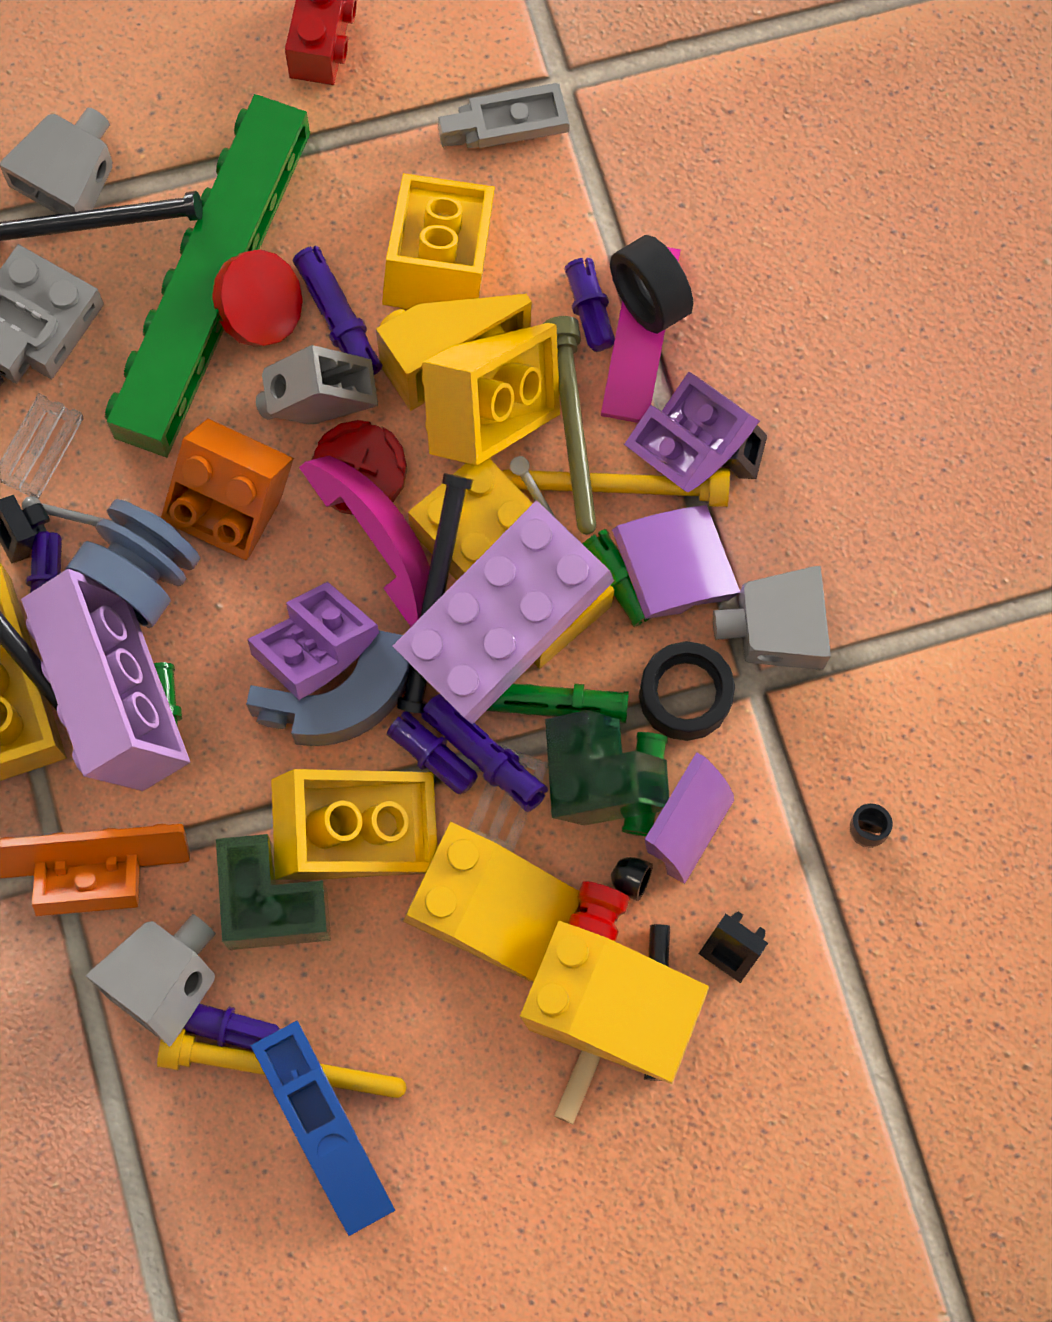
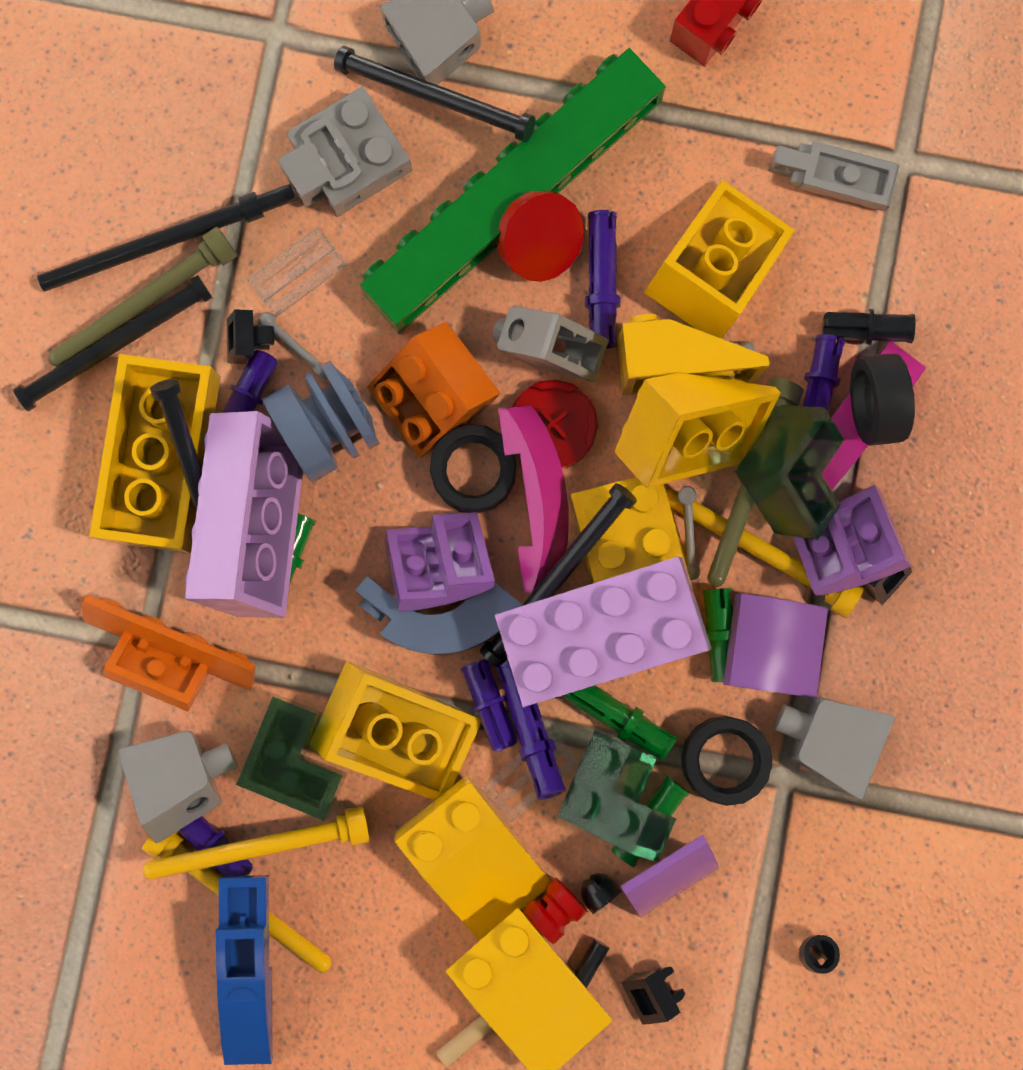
camera: 30 degrees right, 10 degrees up
(302, 506) = (438, 467): none -> black tyre
(355, 939) = (347, 827): none -> yellow piece
(601, 396) = (787, 469): none -> brick
(609, 236) = (870, 326): none -> black axle

